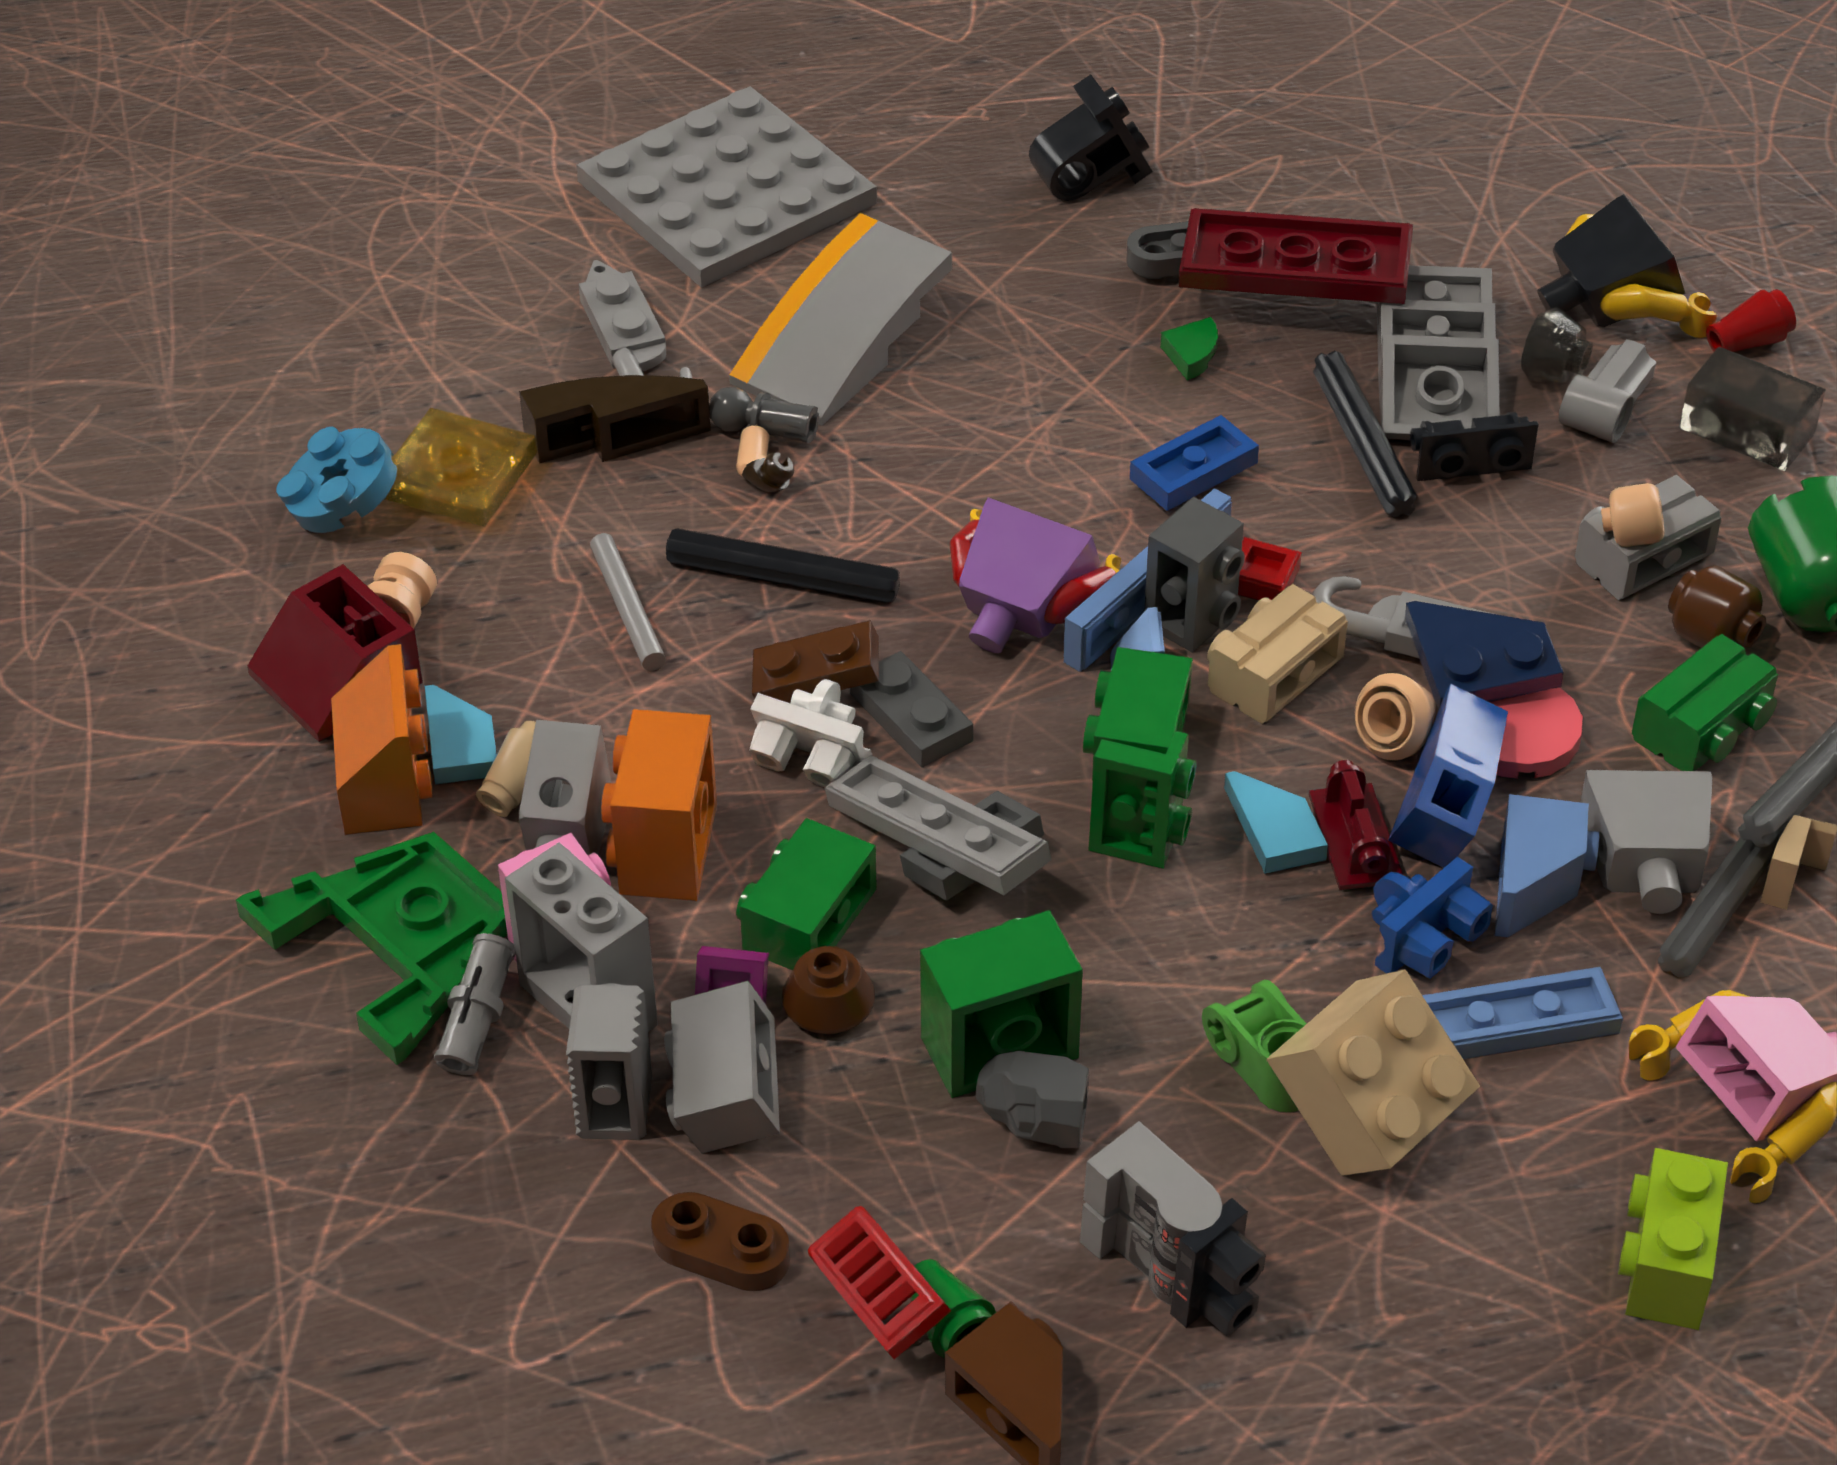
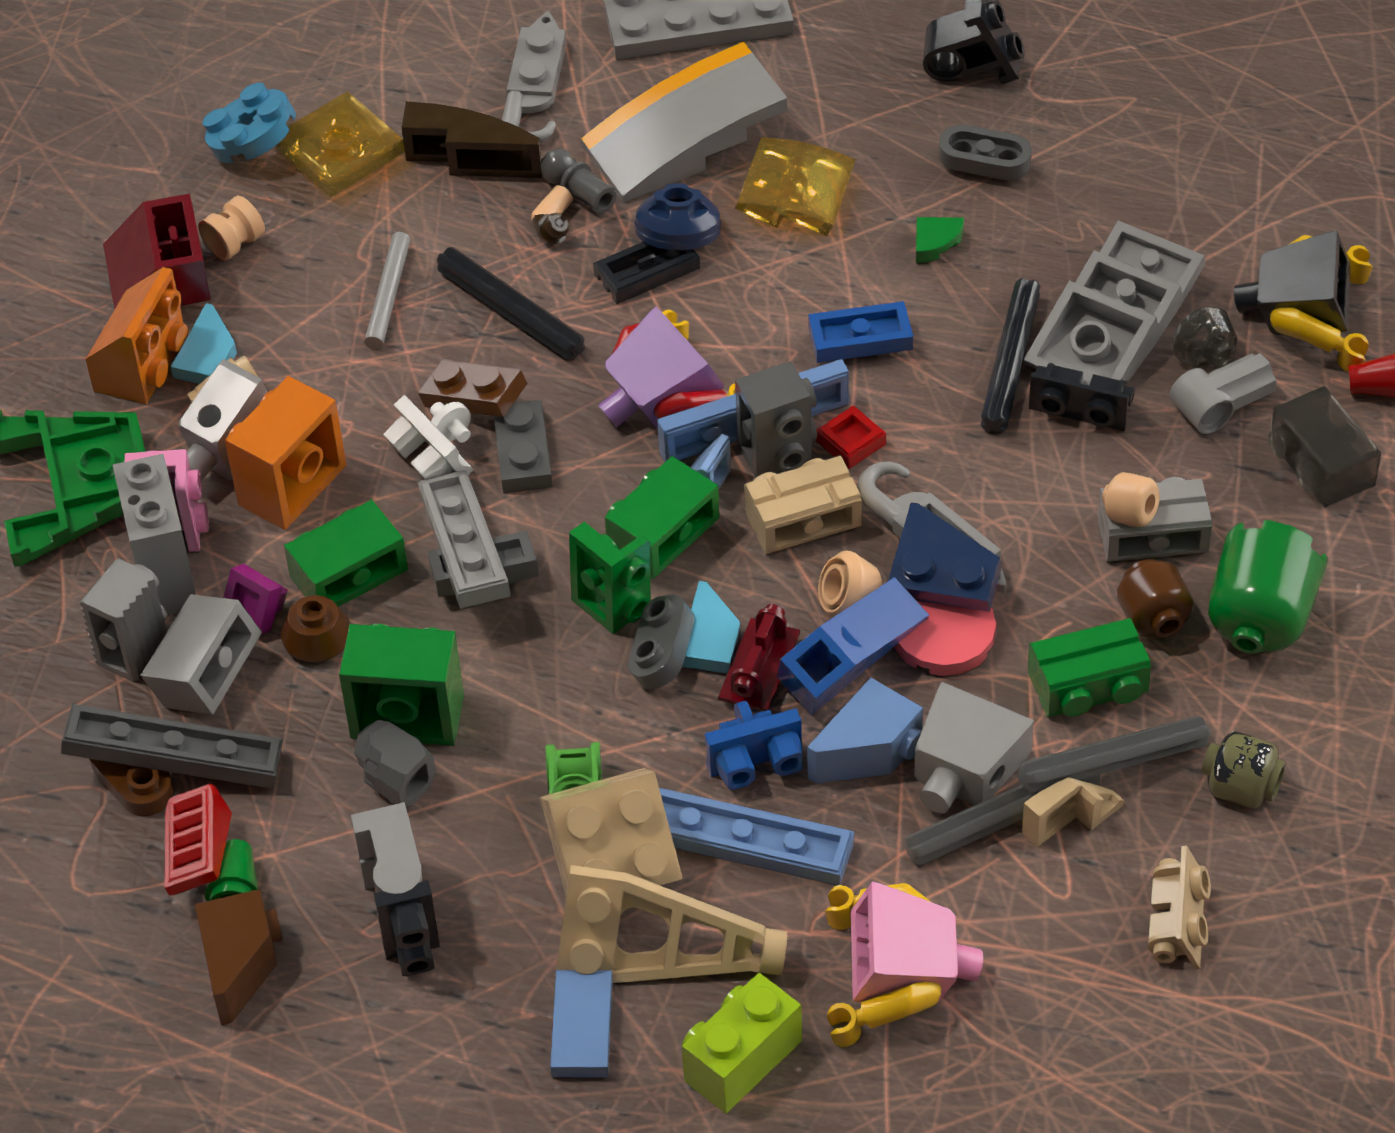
camera: 30 degrees right, 5 degrees up
(475, 1004) = (81, 545): light grey pin -> none
(763, 1186) = (171, 746): none -> dark grey tile
(909, 415) = (677, 219): none -> dark blue piece
(913, 479) = (649, 272): none -> black tile
(1005, 339) = (795, 183): none -> clear yellow slope
(1234, 845) = (661, 641): none -> dark grey plate
(1296, 255) = (1055, 191): dark red tile -> none
(1420, 1168) = (592, 924): none -> tan plate
(1472, 1299) = (581, 1024): none -> medium blue tile

